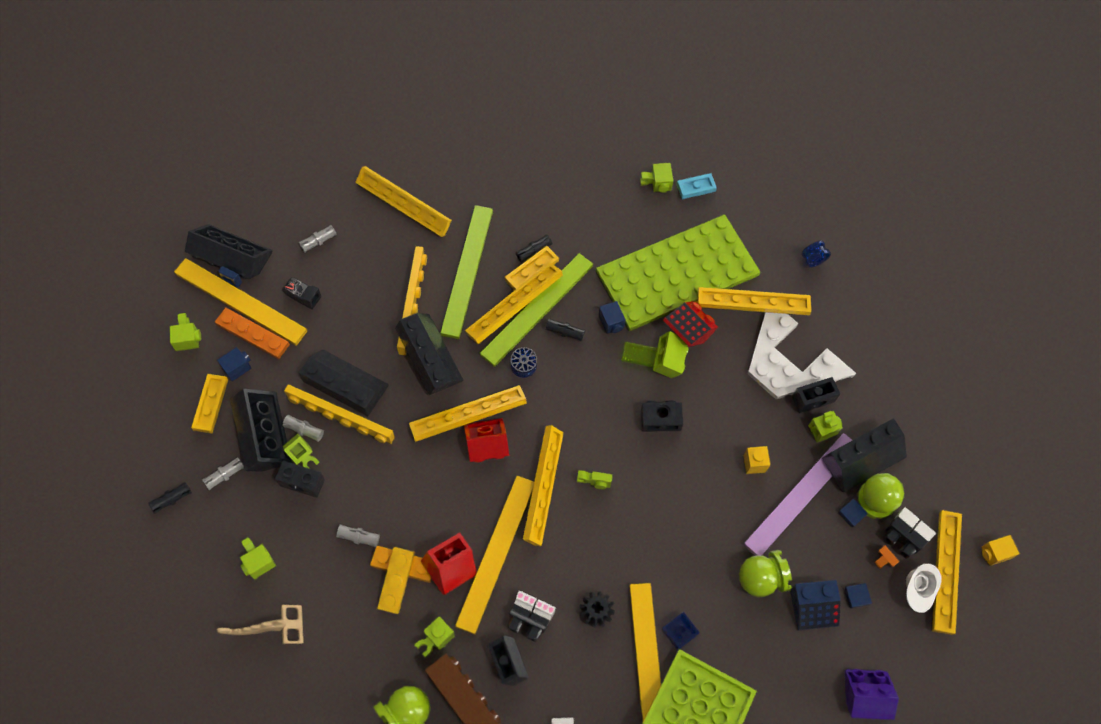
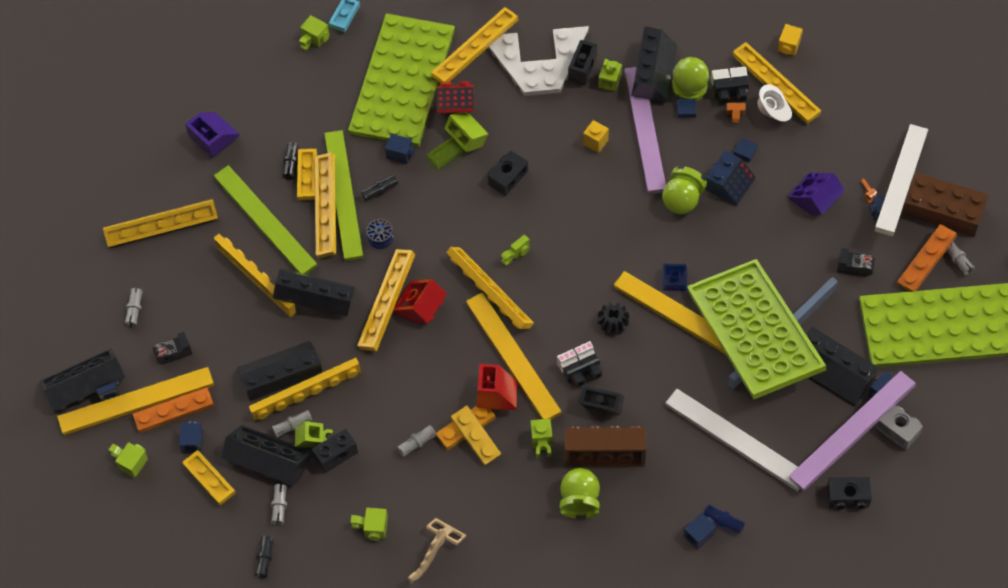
camera: 45 degrees left, 5 degrees down
(509, 174) = (210, 132): none -> dark purple slope

